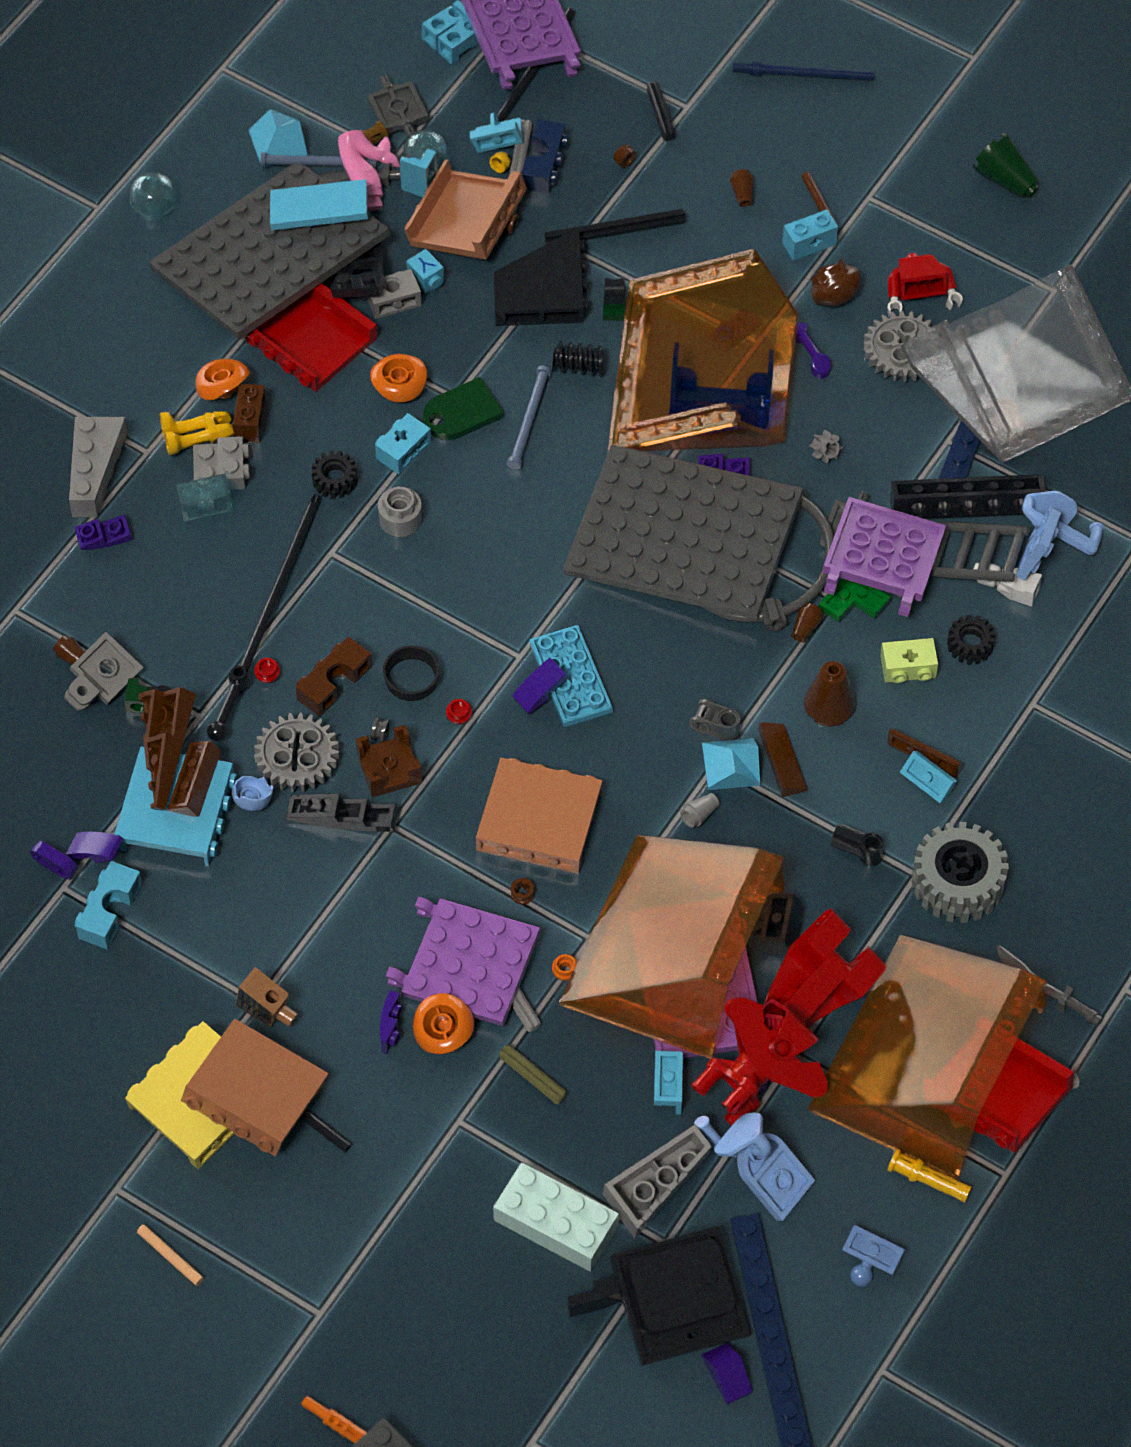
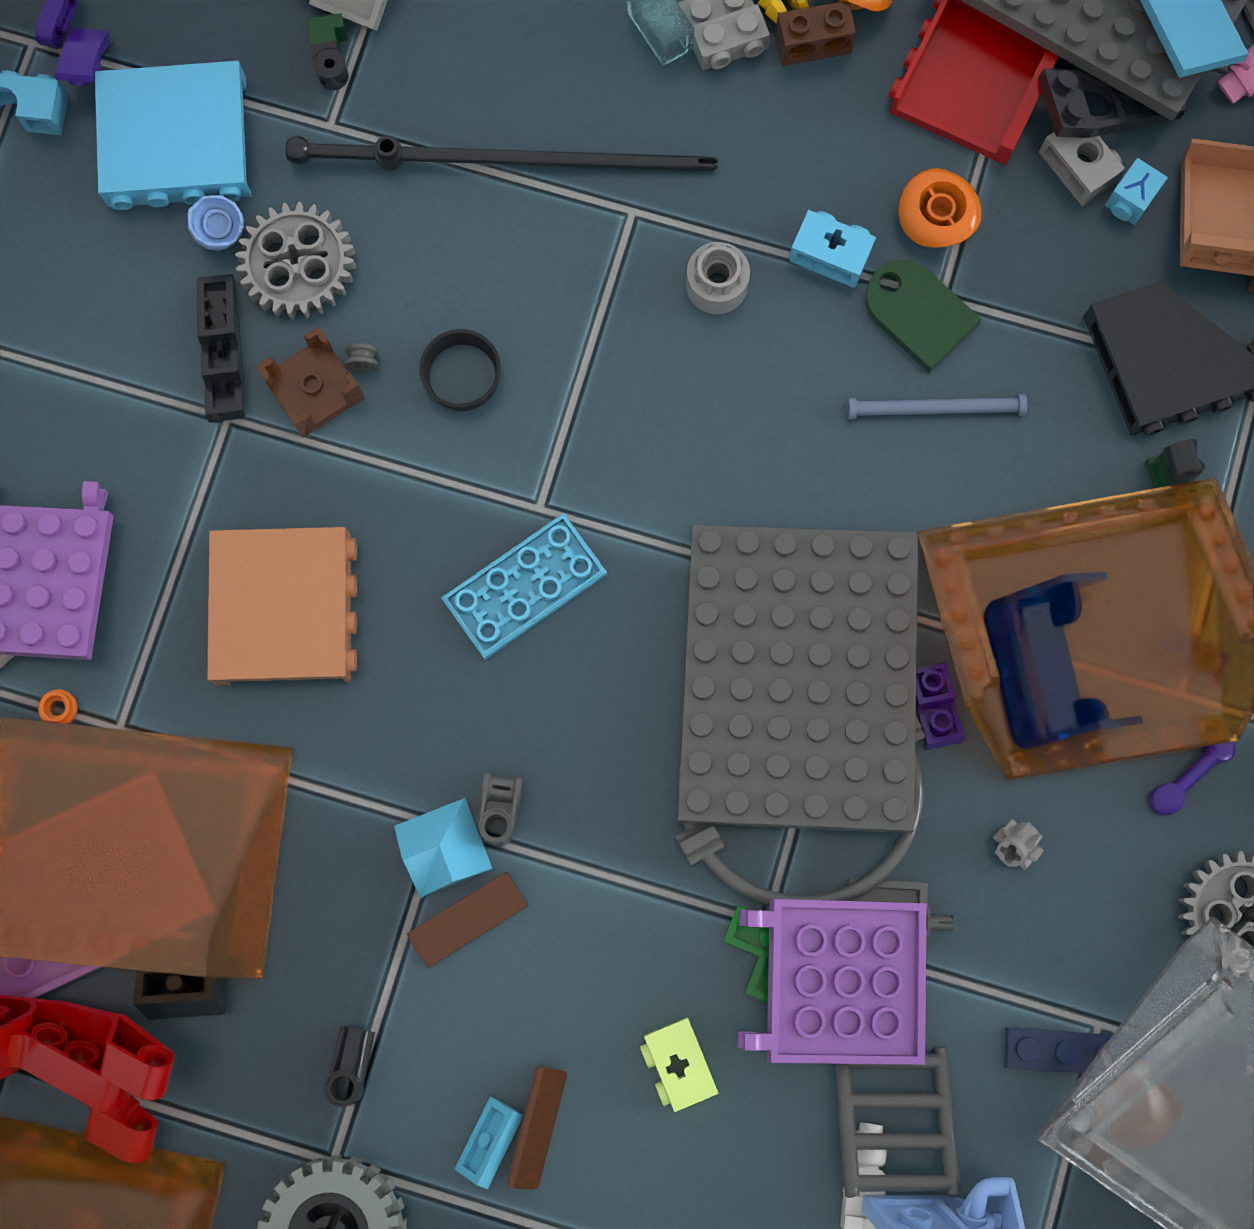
camera: 75 degrees right, 20 degrees up
(166, 723) = (262, 81): reddish brown wedge -> none
(194, 778) = (201, 142): reddish brown slope -> none
(267, 670) = (416, 185): red plate -> none
(334, 486) = (758, 155): black tyre -> none
(345, 660) = (401, 255): reddish brown arch -> none
(458, 711) = (421, 452): red plate -> none
(517, 896) = (175, 617): reddish brown bush -> none
(538, 684) = (483, 547): dark purple slope -> none
(578, 358) = (1053, 444): black piece -> none
(698, 810) = (348, 824): light grey cone -> none
(806, 622) = (705, 895): reddish brown cone -> none
(830, 696) = (603, 959): reddish brown cone -> none
(964, 495) = (992, 1083): black brick -> none
(976, 628) = (770, 1154): black tyre -> none

